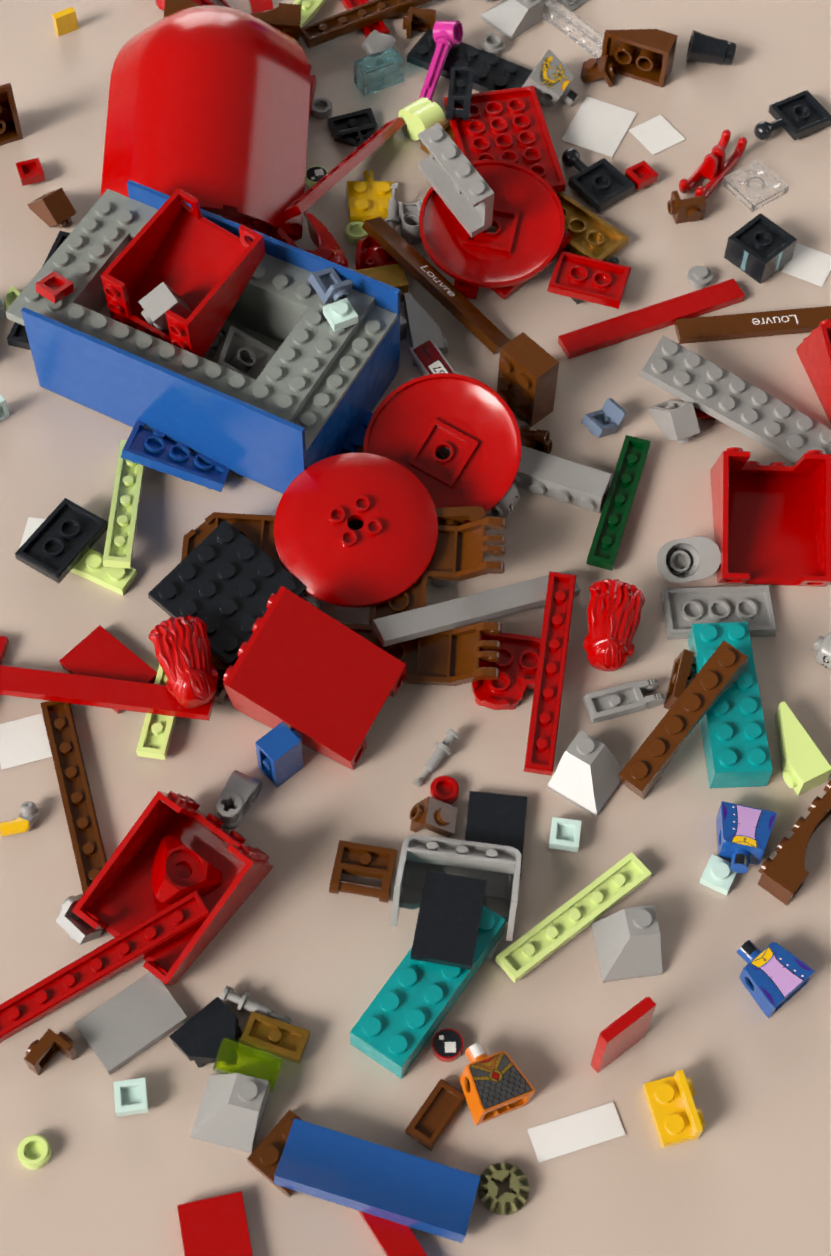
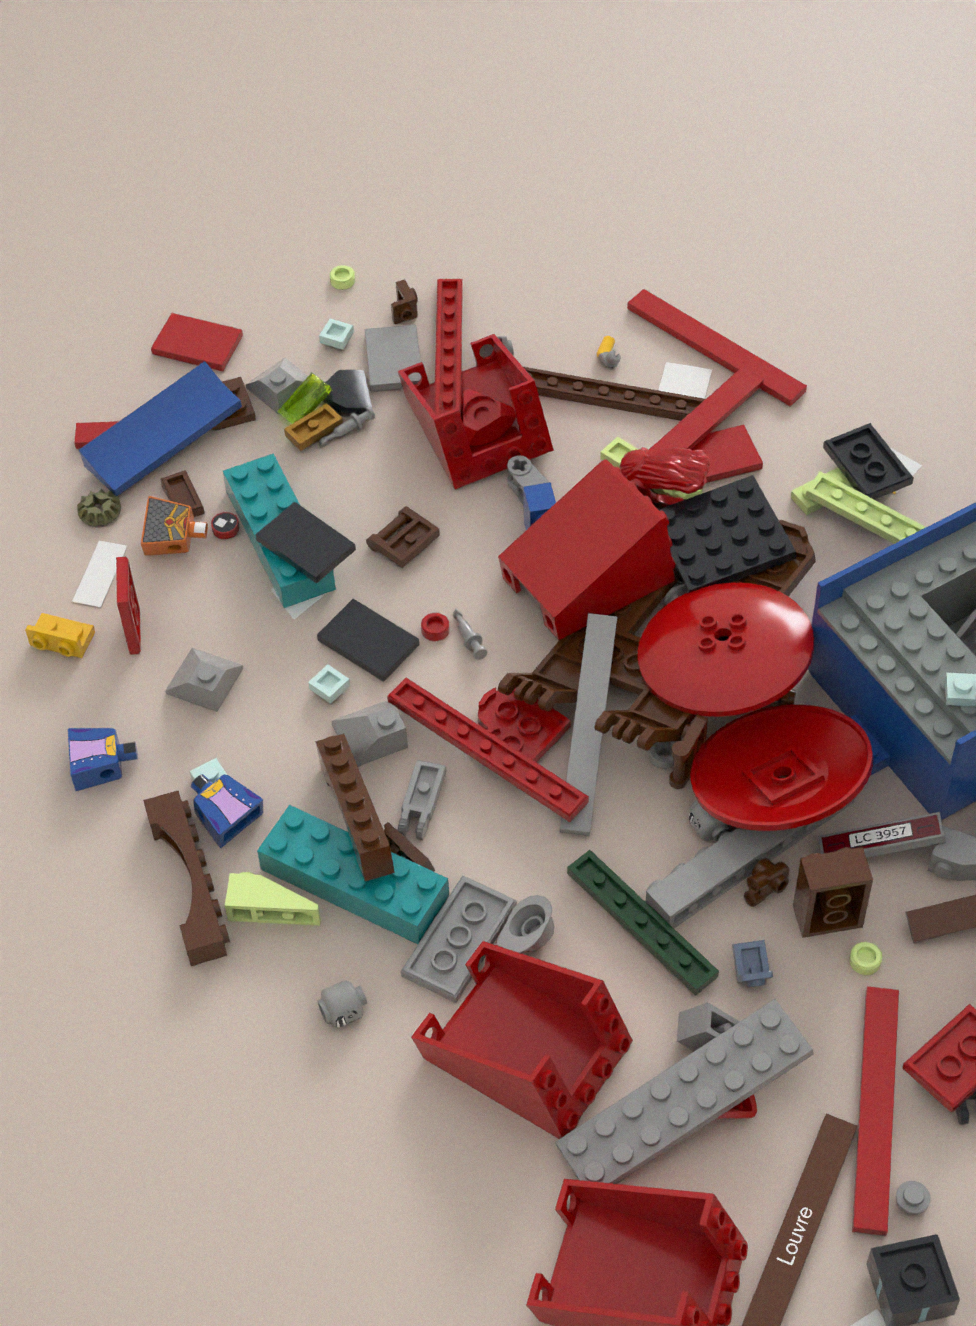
camera: 125 degrees right, 5 degrees down
(434, 816) = (412, 603): reddish brown bracket -> none
(477, 860) = (373, 568): light grey windscreen -> none
(572, 917) = (255, 654): yellowish green plate -> none
(612, 623) = (498, 818): red hair -> none

